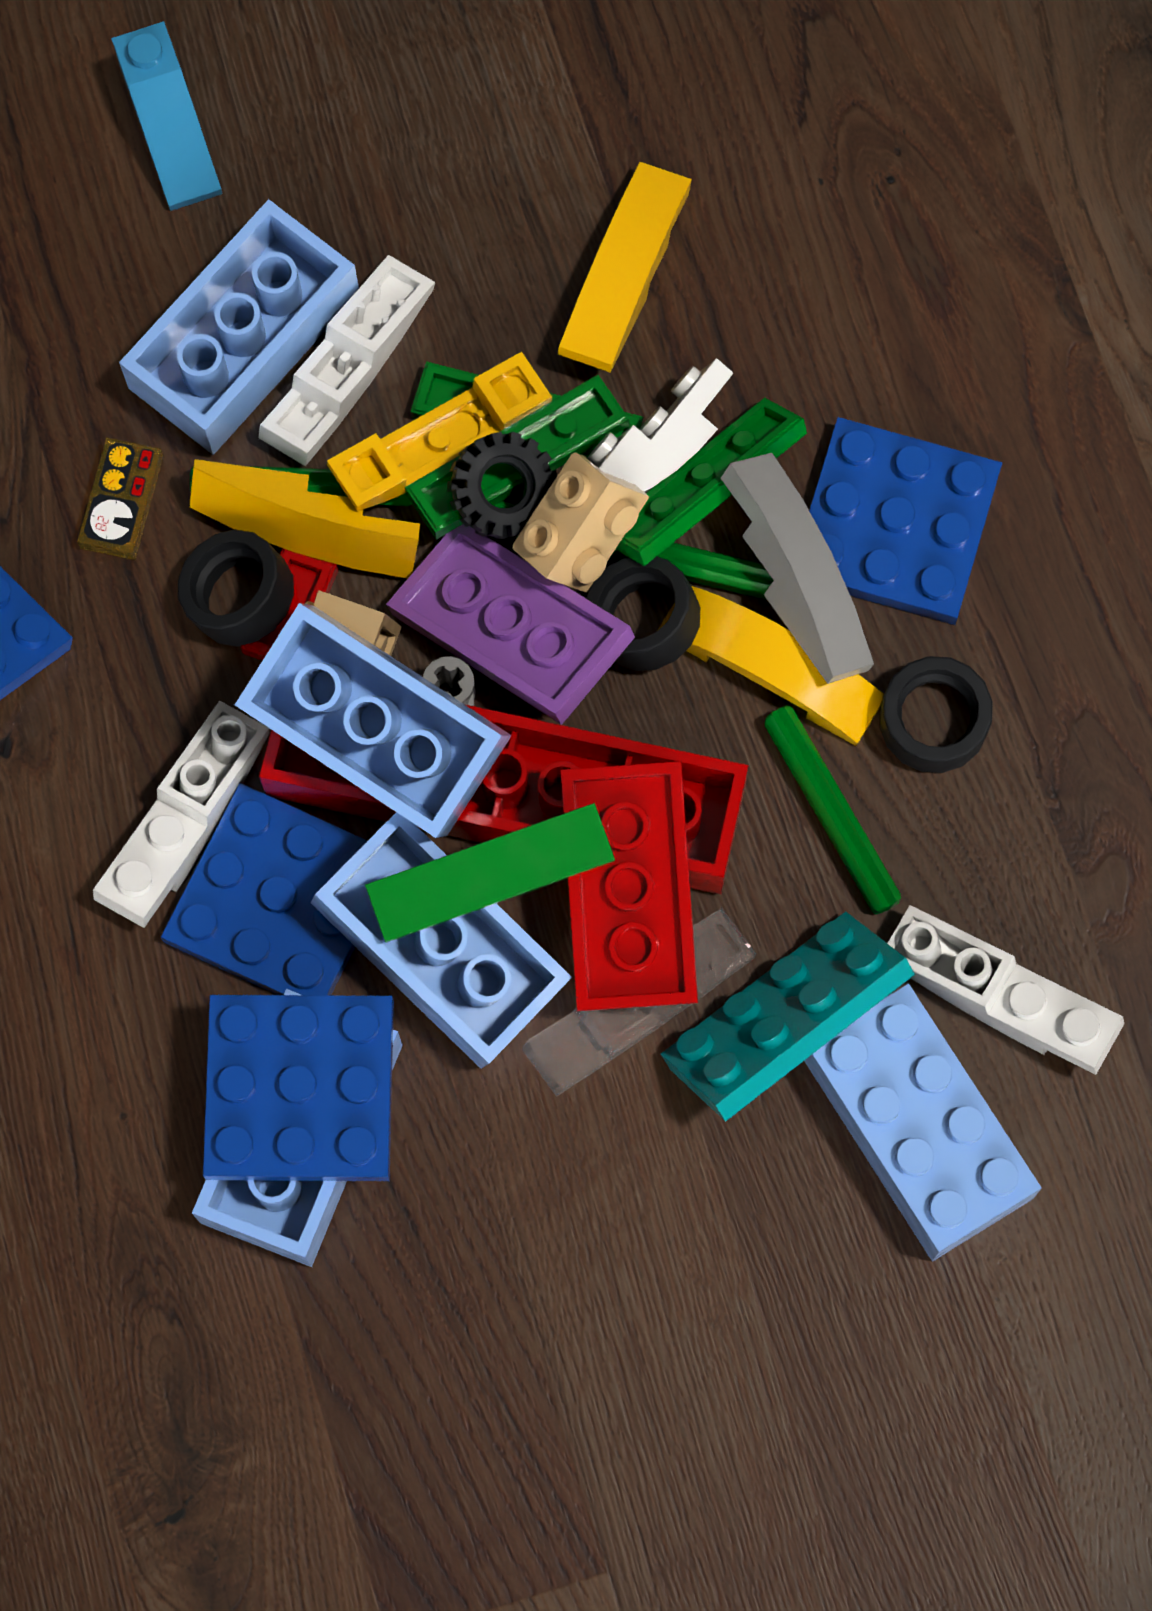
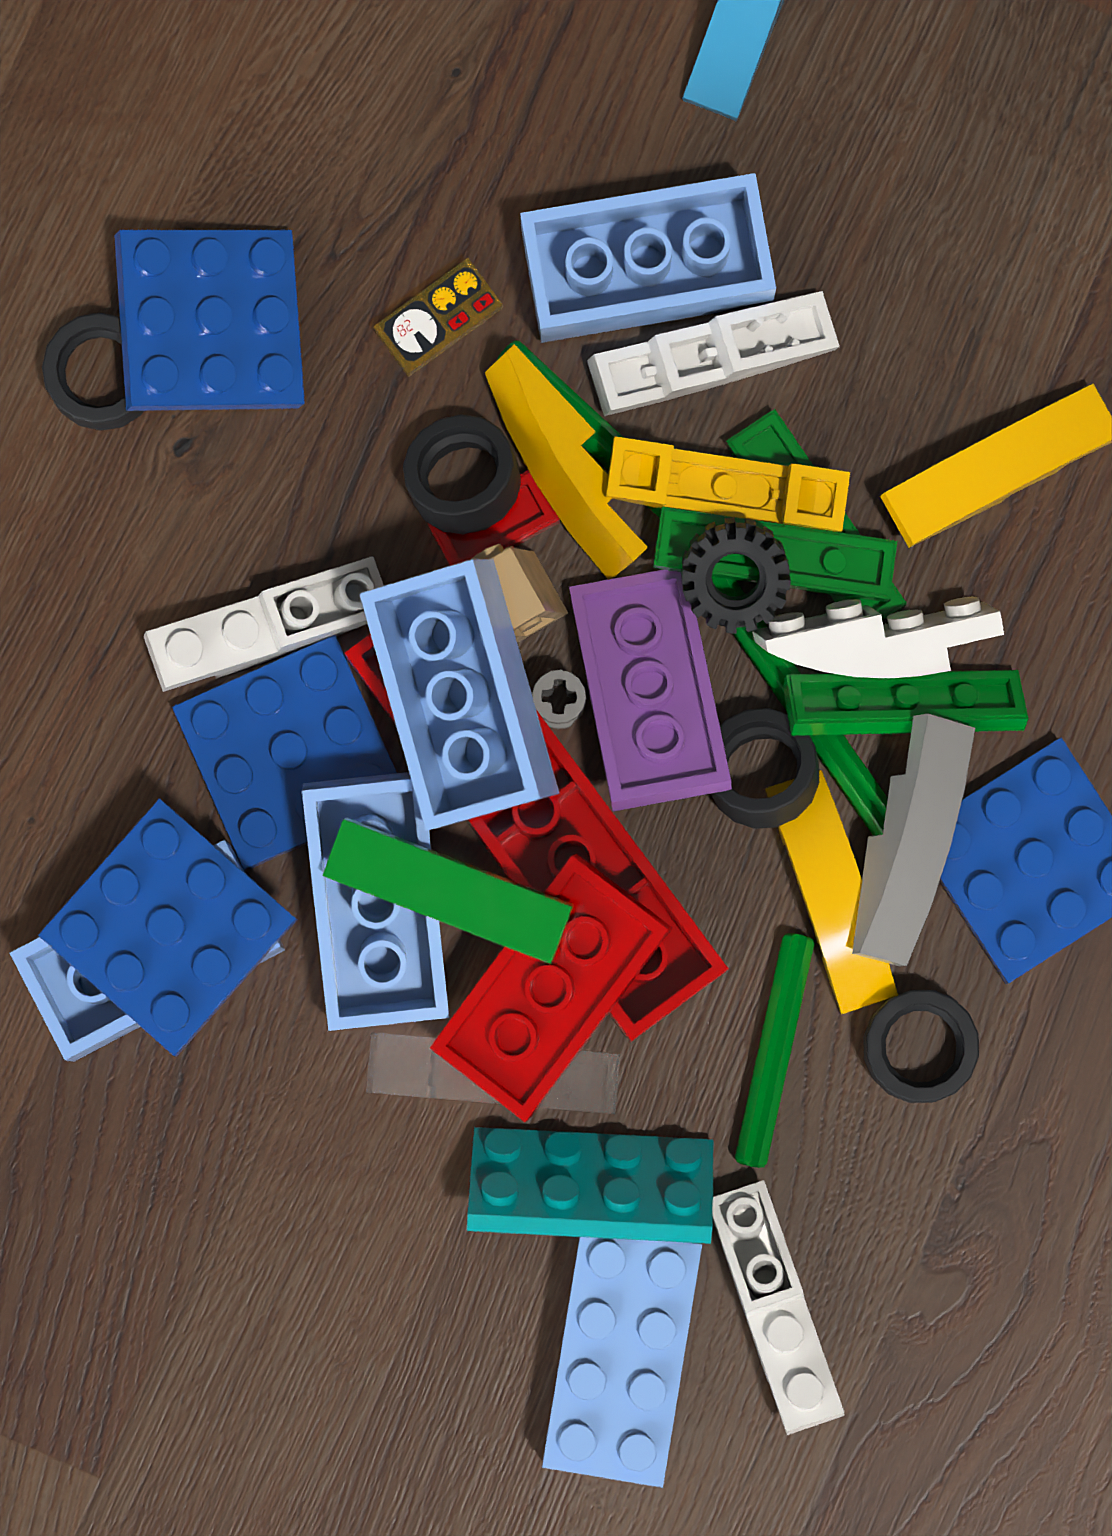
camera: 40 degrees right, 10 degrees up
(579, 523) = (764, 661): tan bracket -> none

